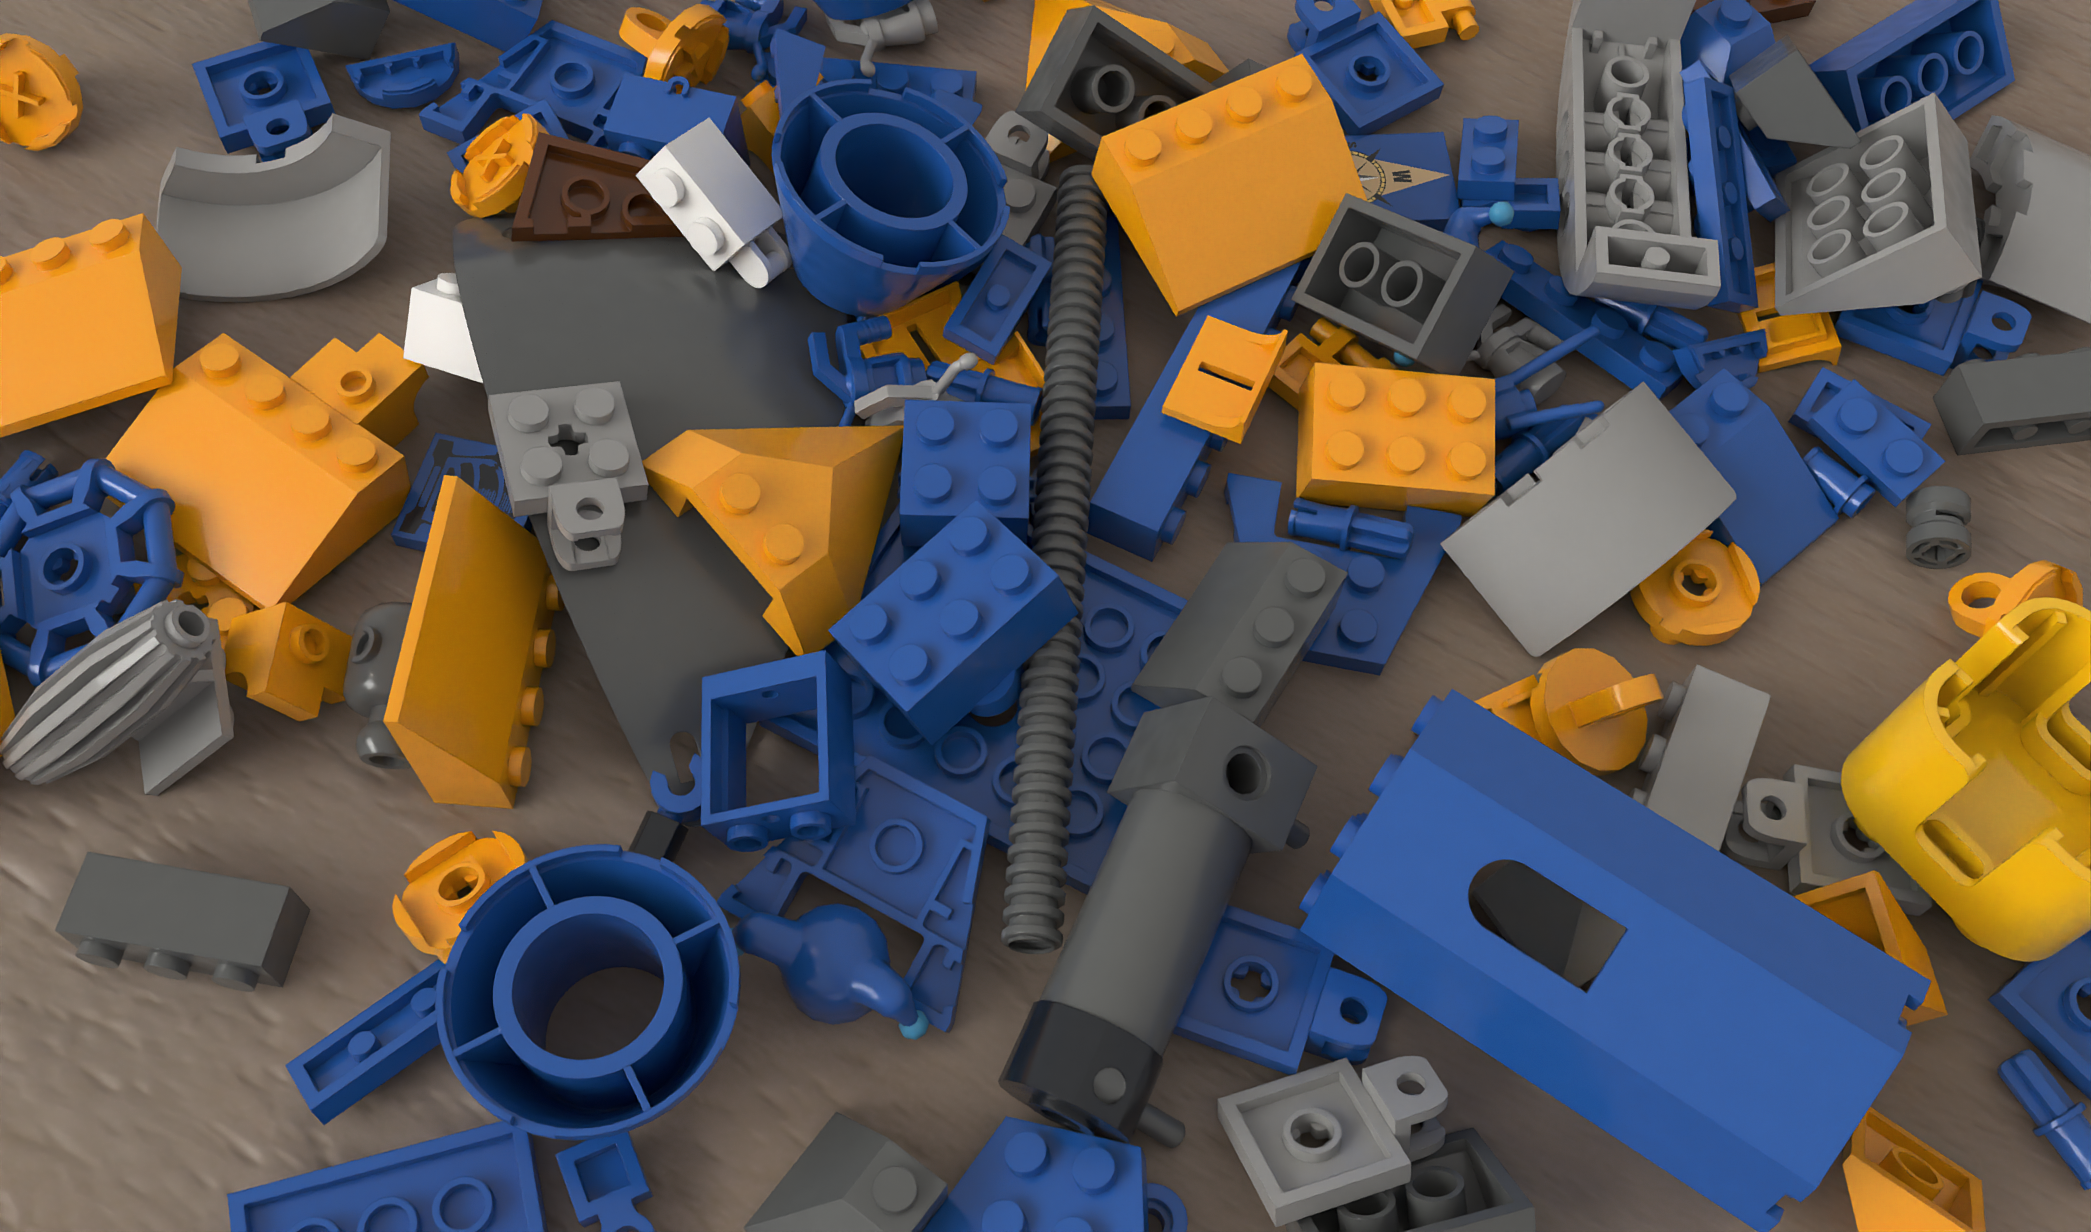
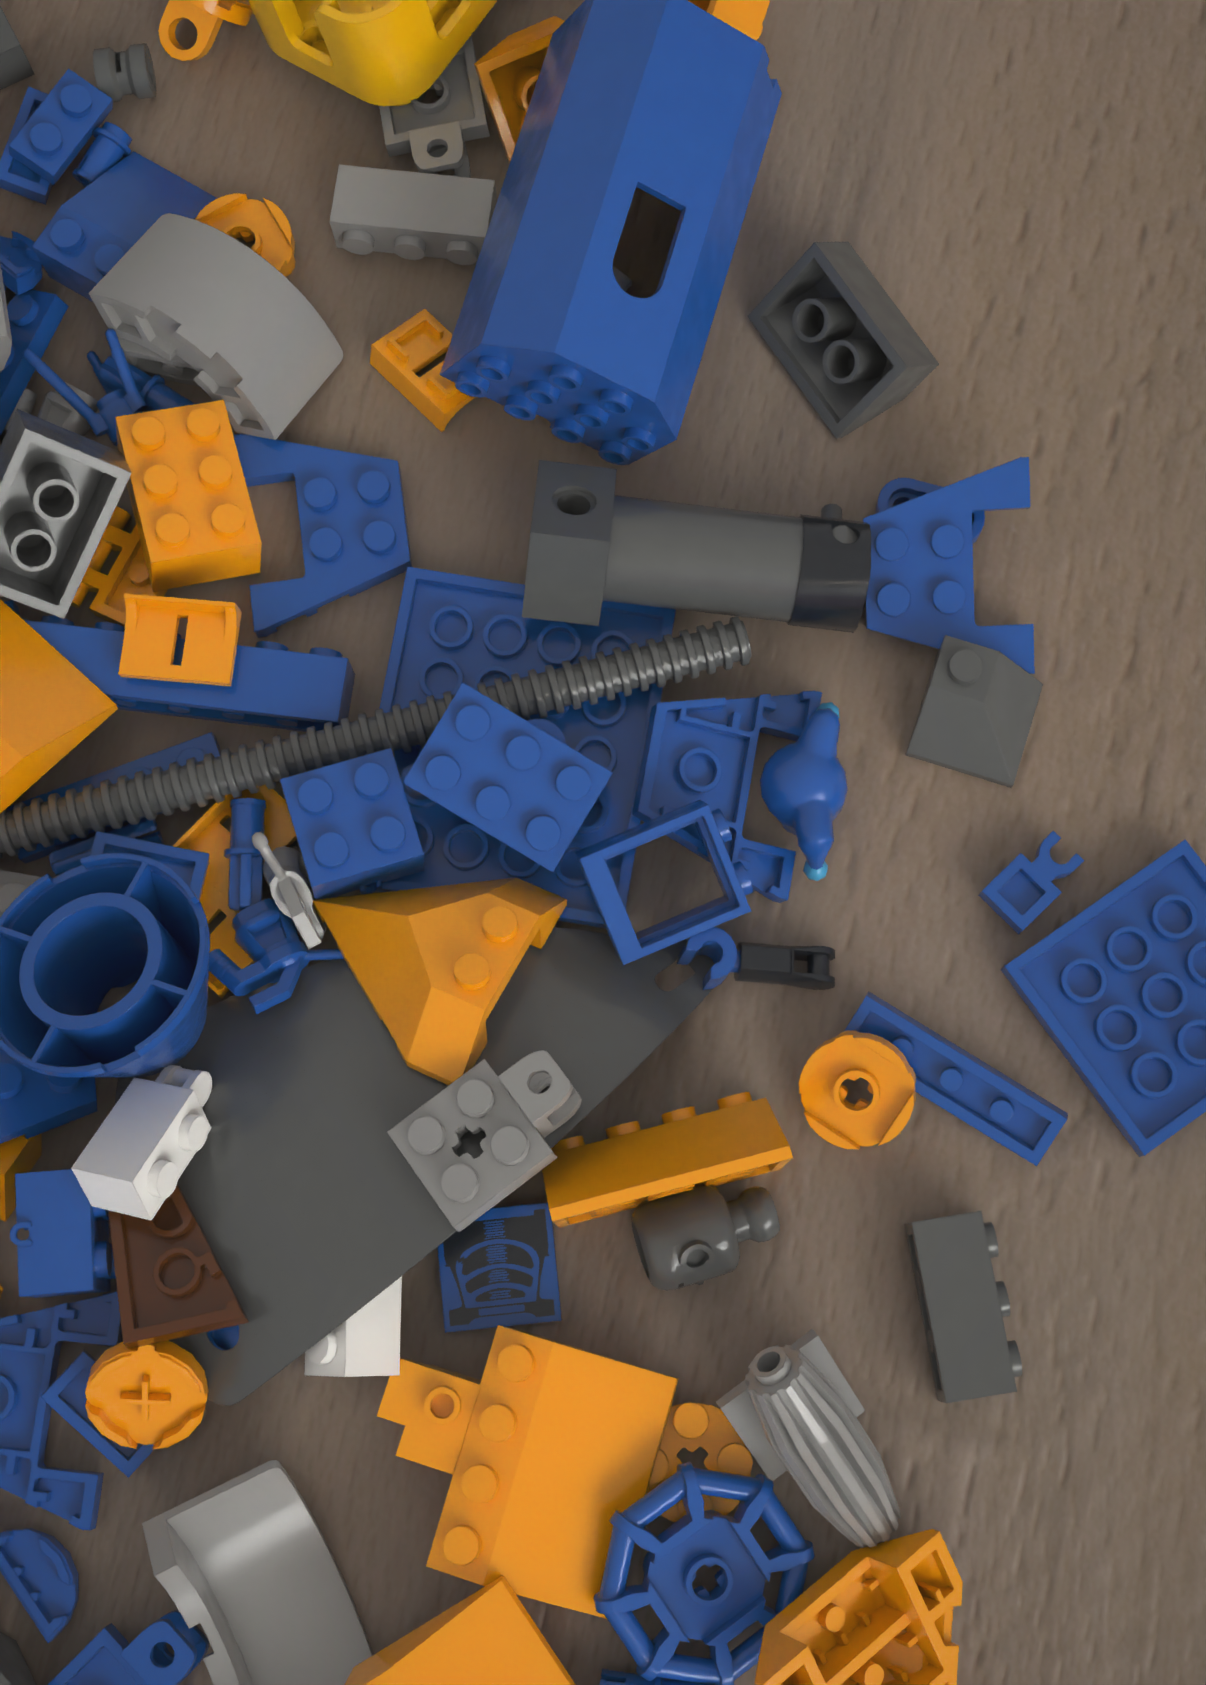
camera: 100 degrees left, 15 degrees up
(287, 659) = (719, 1336): light orange brick -> none
(540, 937) = (970, 865): blue cone -> none
(1244, 629) = (426, 562): dark grey slope -> none
(1303, 1000) = (709, 449): blue plate -> none
(1350, 528) = (280, 515): blue axle -> none
(1365, 1127) = (781, 380): light grey plate -> none
(1592, 709) = (389, 292): light orange tile -> none

